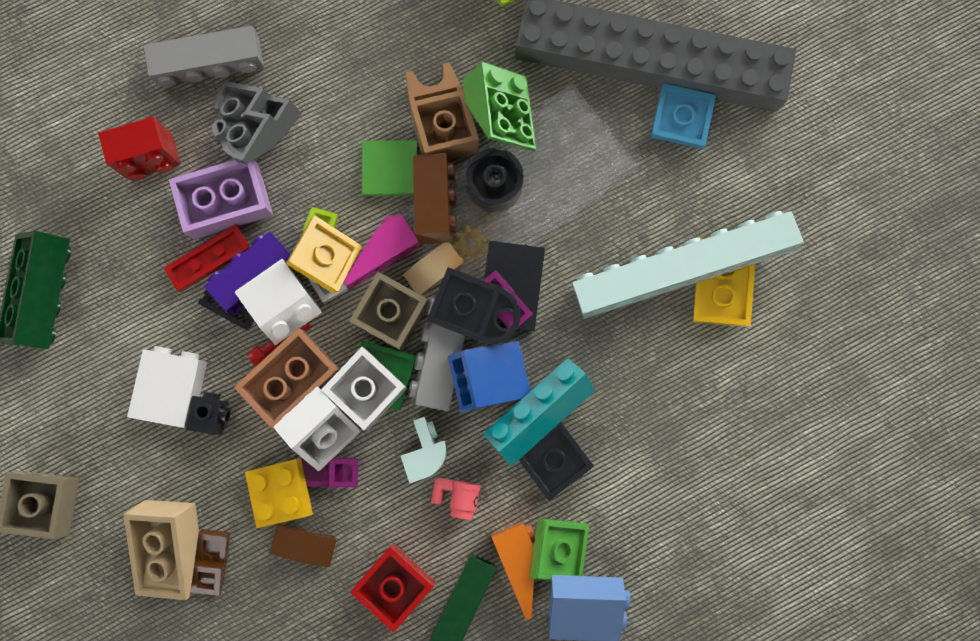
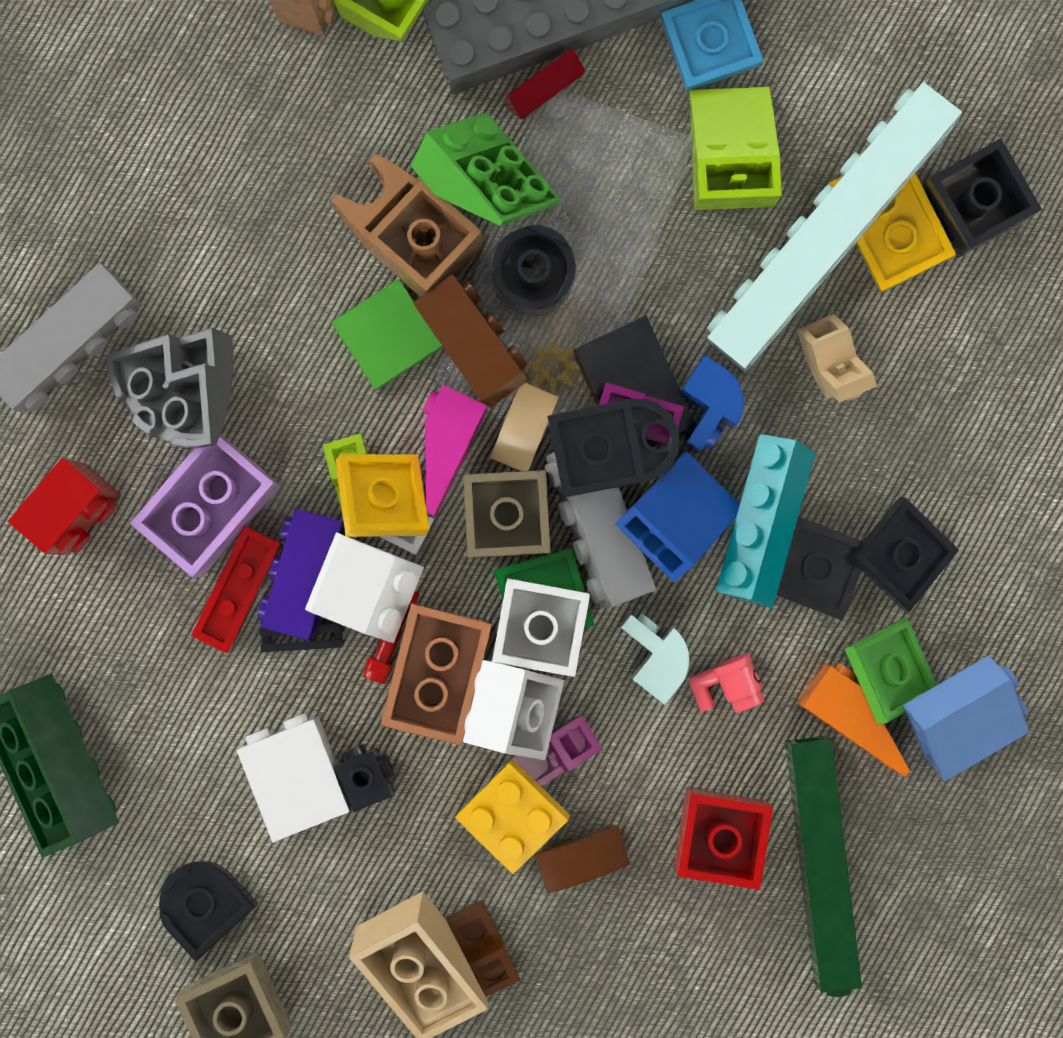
camera: 30 degrees left, 5 degrees up
(65, 430) = (202, 905): none -> black tile
(558, 322) = (719, 396): none -> blue brick
(570, 81) = (544, 84): none -> dark red slope
(610, 484) = (904, 554): none -> black tile
(640, 342) = (834, 359): none -> tan brick
(657, 185) = (734, 149): none -> lime slope
(785, 301) = (980, 198): none -> black brick

